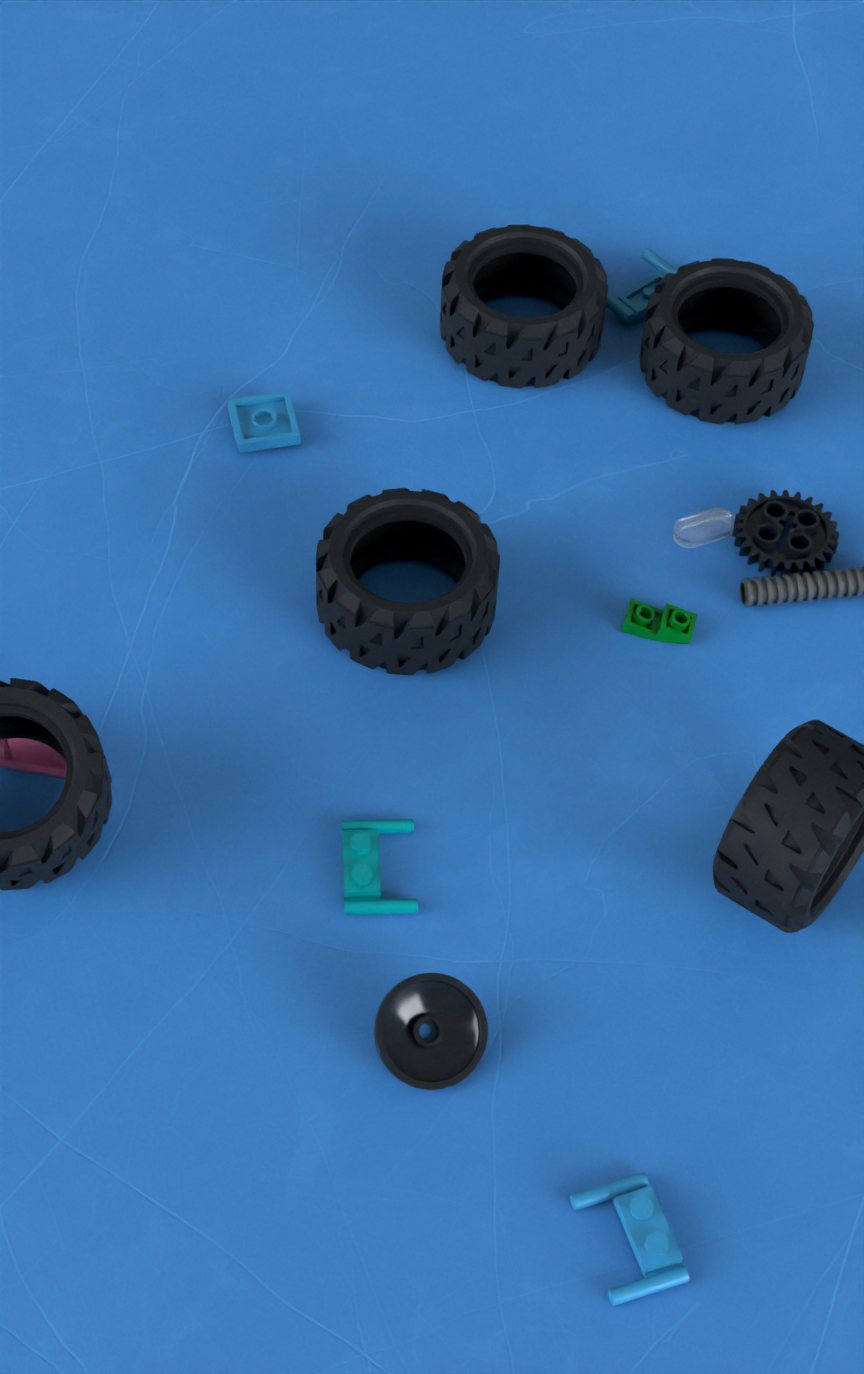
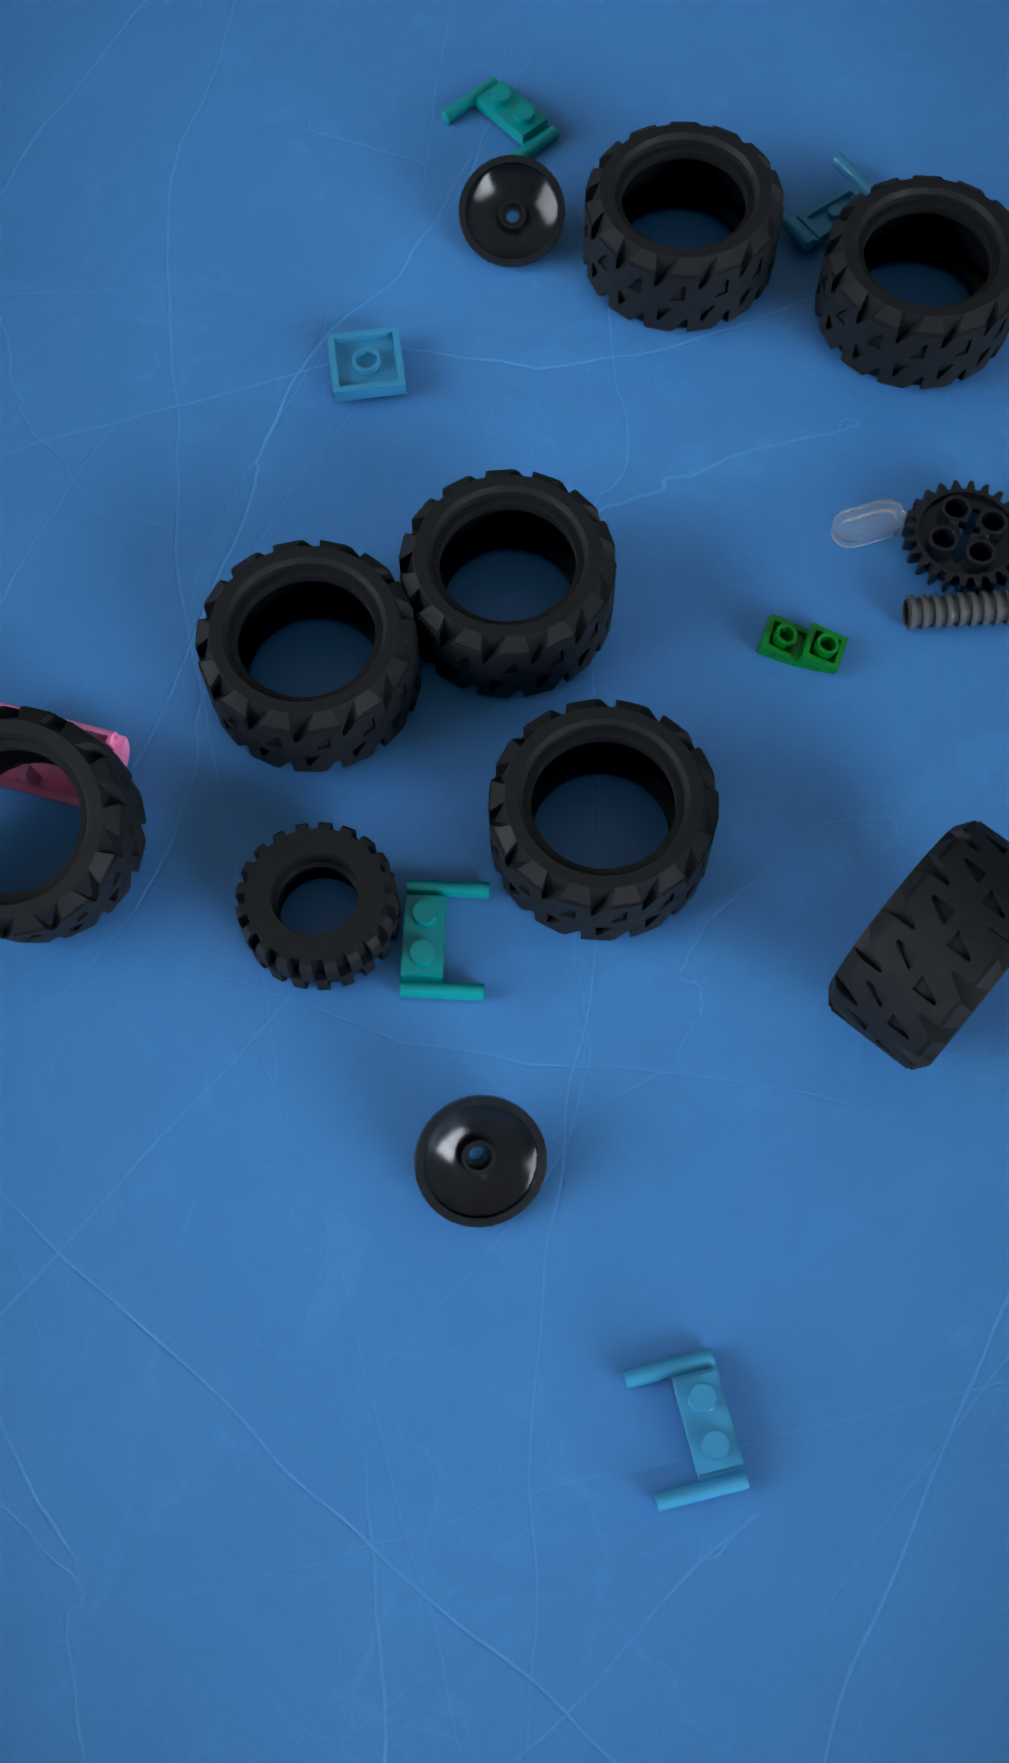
camera: 10 degrees right, 15 degrees up
(237, 588) = (296, 586): none -> black tyre
(269, 879) = (307, 857): none -> black tyre
(367, 228) = (509, 112): none -> teal plate
(383, 281) = (509, 186): none -> black dish
(516, 698) = (619, 743): none -> black tyre

